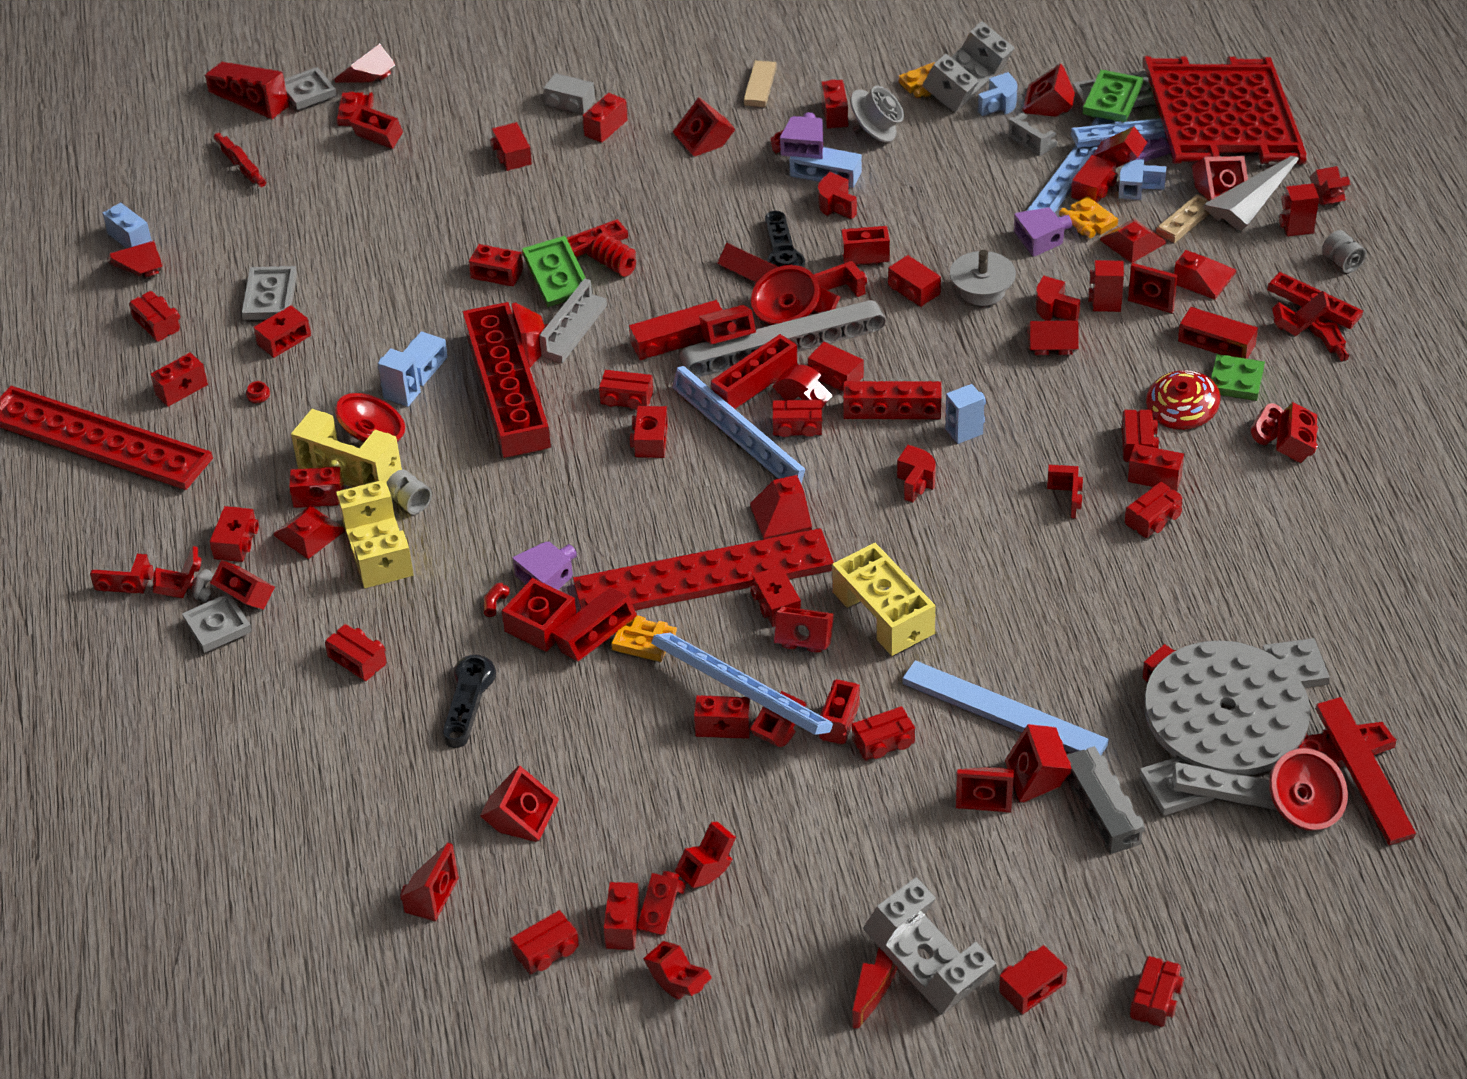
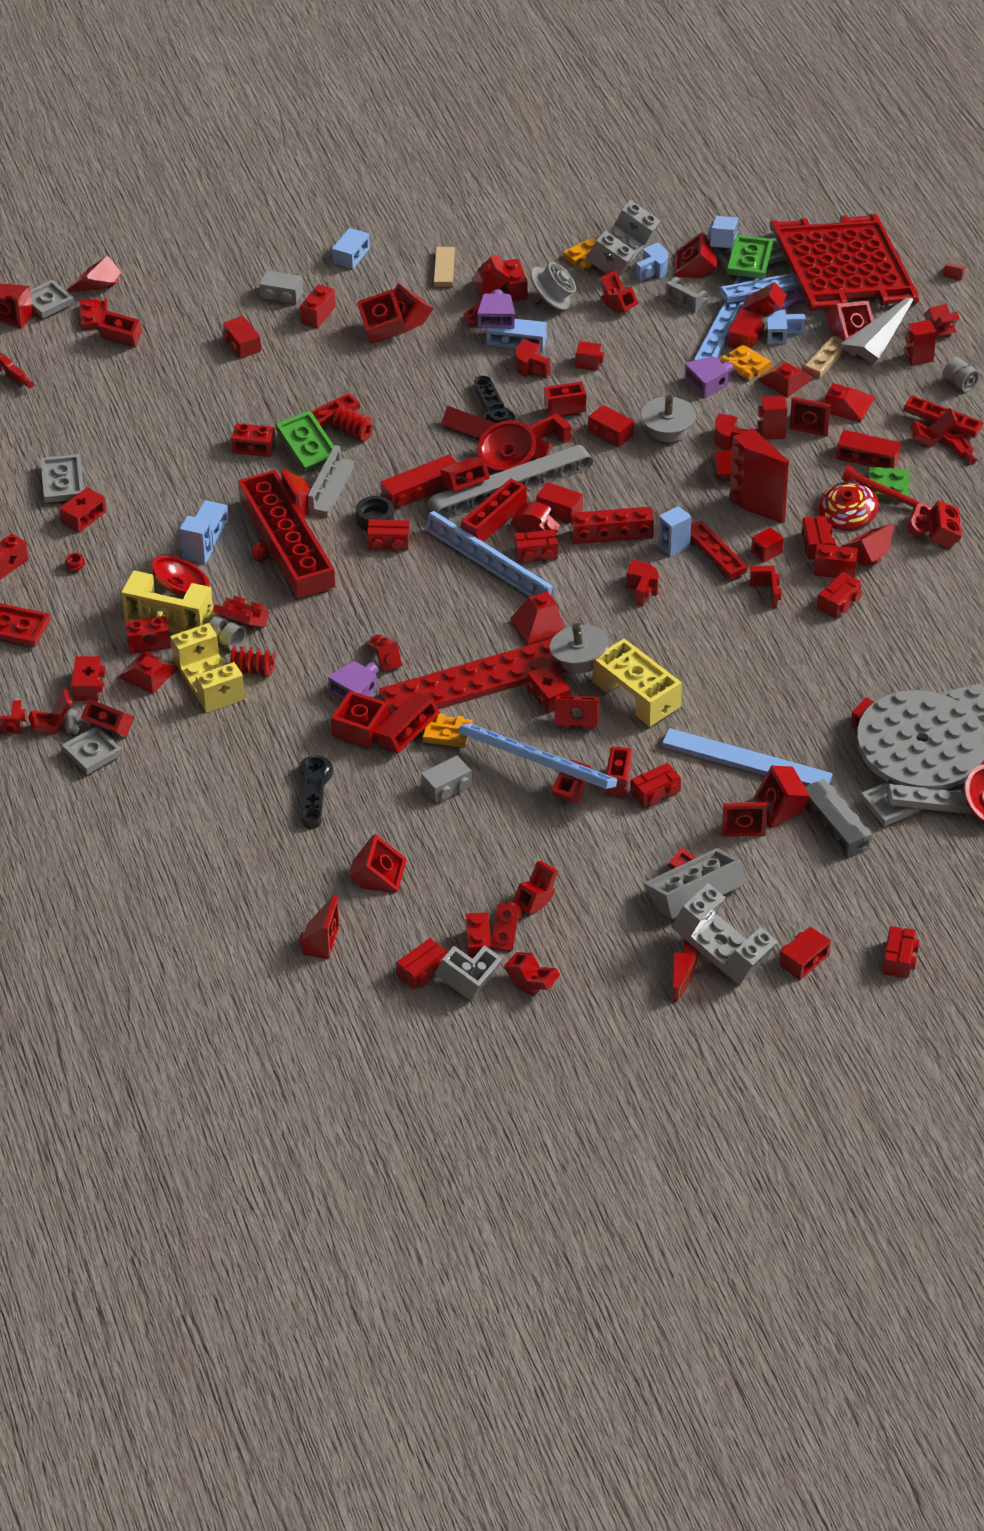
camera: 10 degrees left, 0 degrees up
(356, 652) = (214, 762): red brick -> none
(430, 531) = (253, 662): none -> red piece
(431, 468) = (239, 610): none -> red plate
(472, 398) = (260, 552): none -> red plate
(490, 598) = (314, 711): red arm -> none
(590, 533) = (386, 651): none -> red bracket
(598, 965) = (468, 974): none -> light grey brick
(614, 351) = (373, 503): none -> black tyre
(628, 700) = (446, 779): none -> light grey brick
(650, 432) = (416, 567): red brick -> none
(657, 55) = (350, 248): none -> light blue brick
(673, 134) = (381, 316): none -> red brick
(722, 717) = (525, 784): red brick -> none
(808, 95) = (490, 276): none -> red slope
(818, 548) = (578, 647): none -> light grey piece
(899, 840) = (680, 858): none -> red plate
(904, 196) = (589, 356): none -> red brick
(933, 857) = (676, 887): none -> light grey slope
(948, 129) = (615, 295): none -> red brick
(1013, 441) = (717, 550): none -> red plate
(1074, 355) = (758, 476): none -> red slope
(1075, 439) = (767, 544): none -> red brick
(1086, 65) = (723, 231): none -> light blue brick
(1191, 363) = (851, 475): none -> red piece
(1203, 450) = (872, 544): none -> red slope
(1354, 129) = (954, 271): none -> red slope

